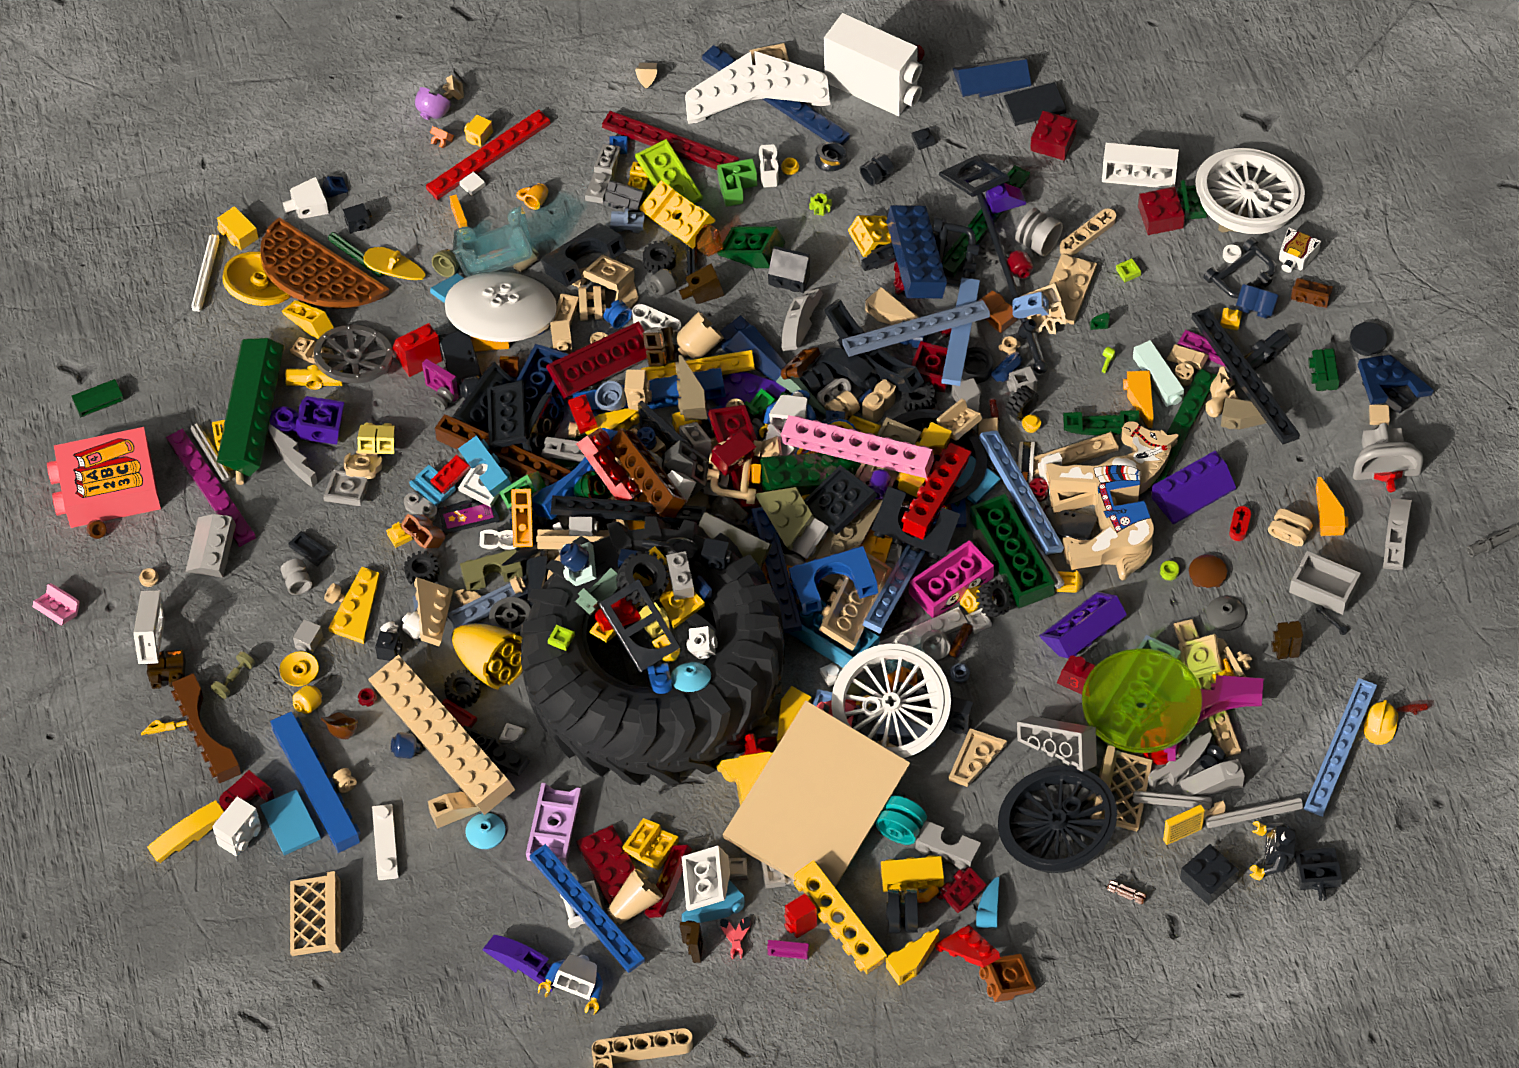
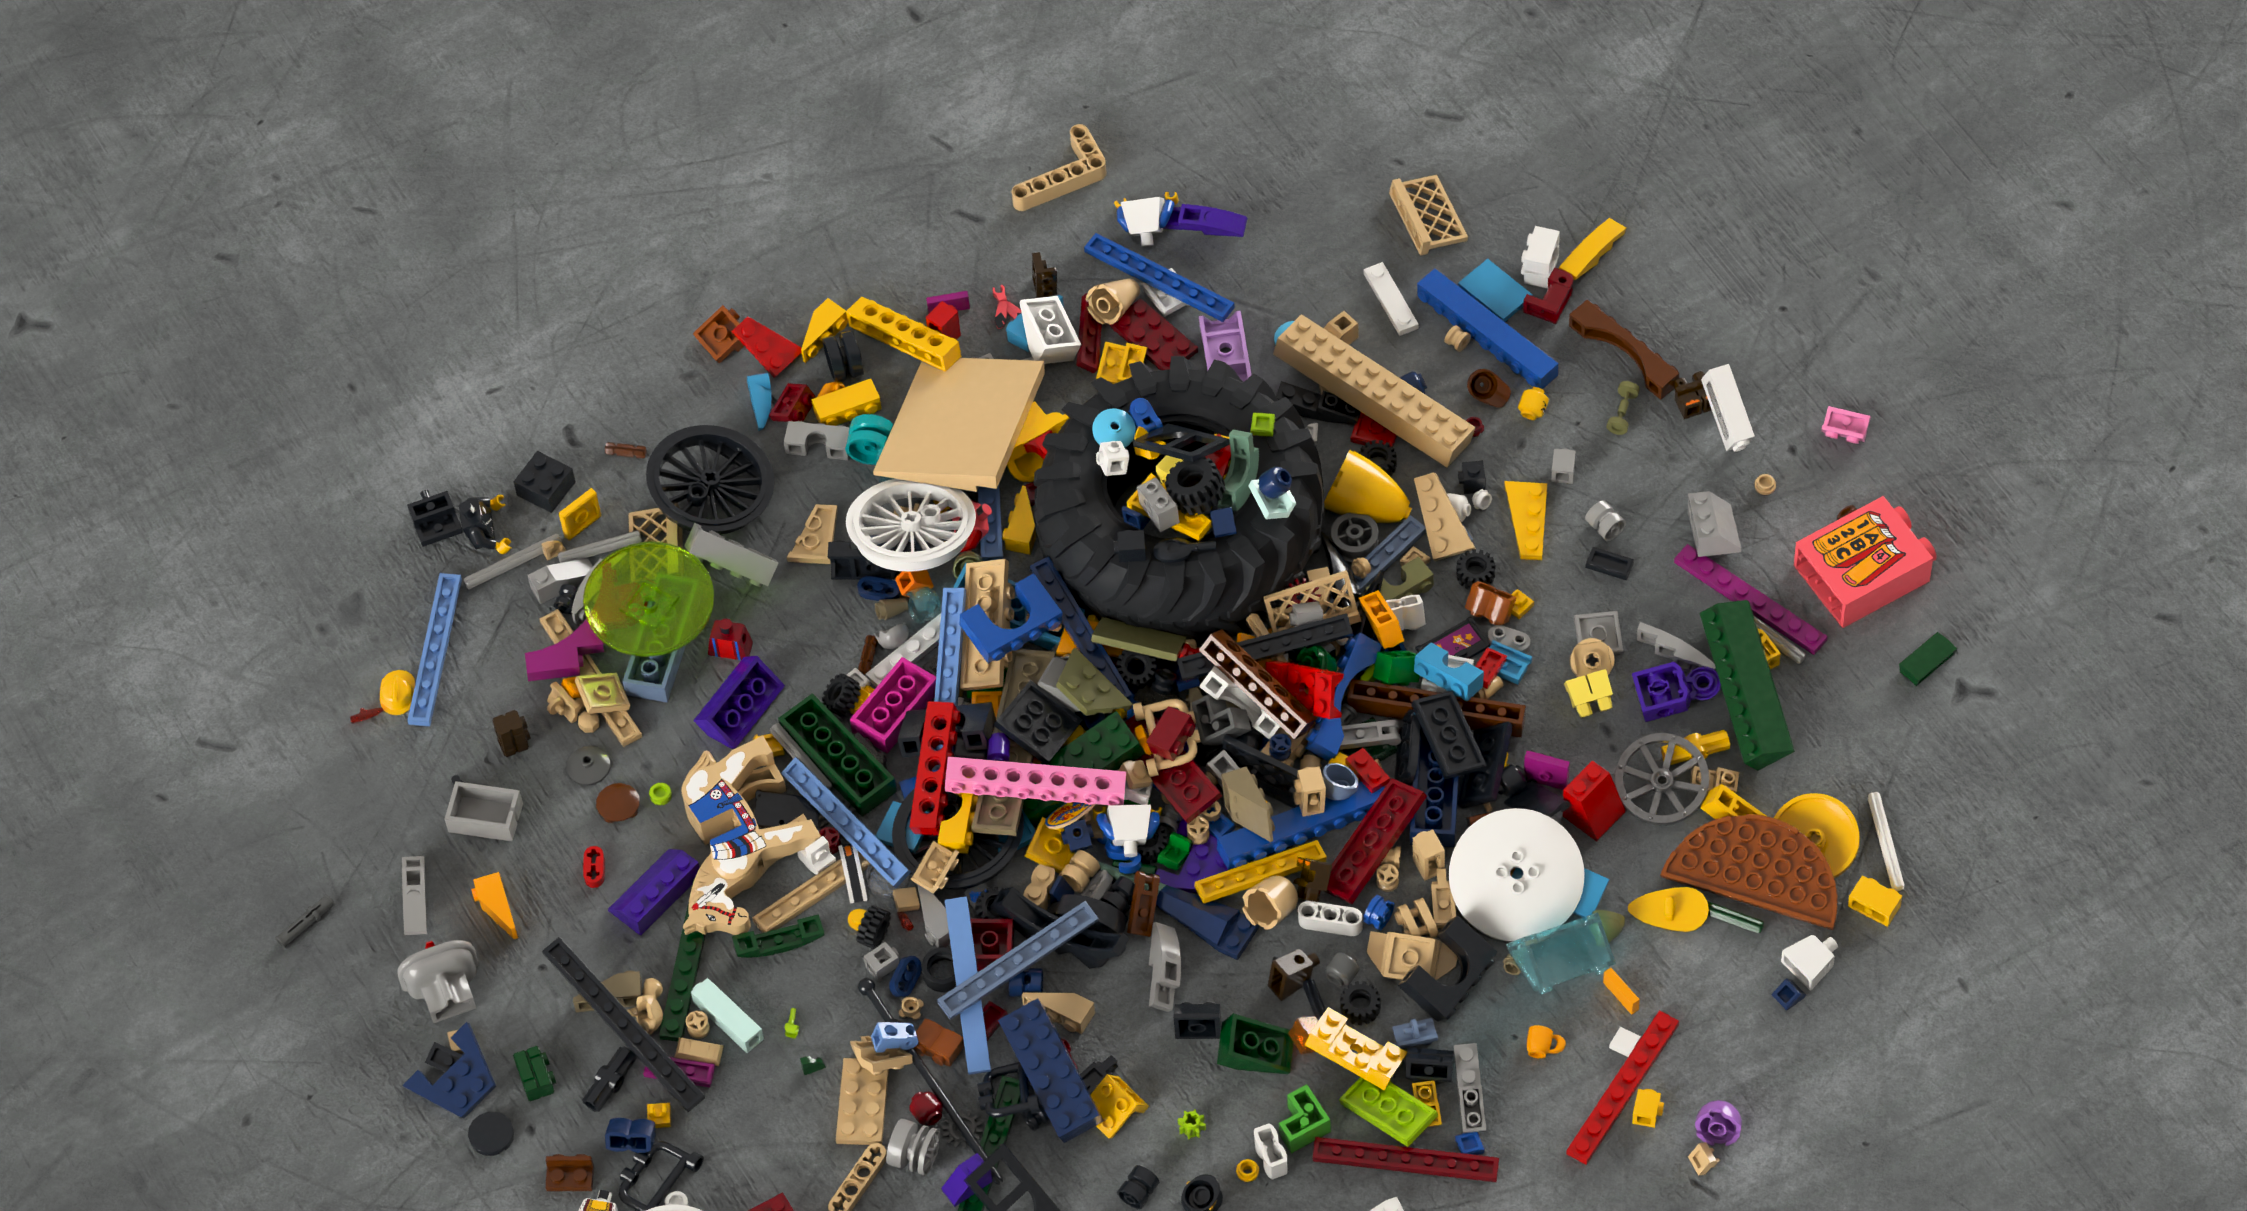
camera: 165 degrees right, 0 degrees up
(162, 727) = (1672, 343): yellow hand -> none
(299, 662) = (1556, 424): yellow dish -> none
(333, 593) = (1558, 517): tan tile -> none
(357, 218) = (1740, 952): black brick -> none
(440, 135) = (1689, 1090): tile -> none
(959, 668) = (855, 615): sand blue plate -> none
(1128, 270) = (796, 1146): lime tile -> none
(1139, 394) = (742, 983): light orange slope -> none
(1290, 527) = (535, 872): tan brick -> none

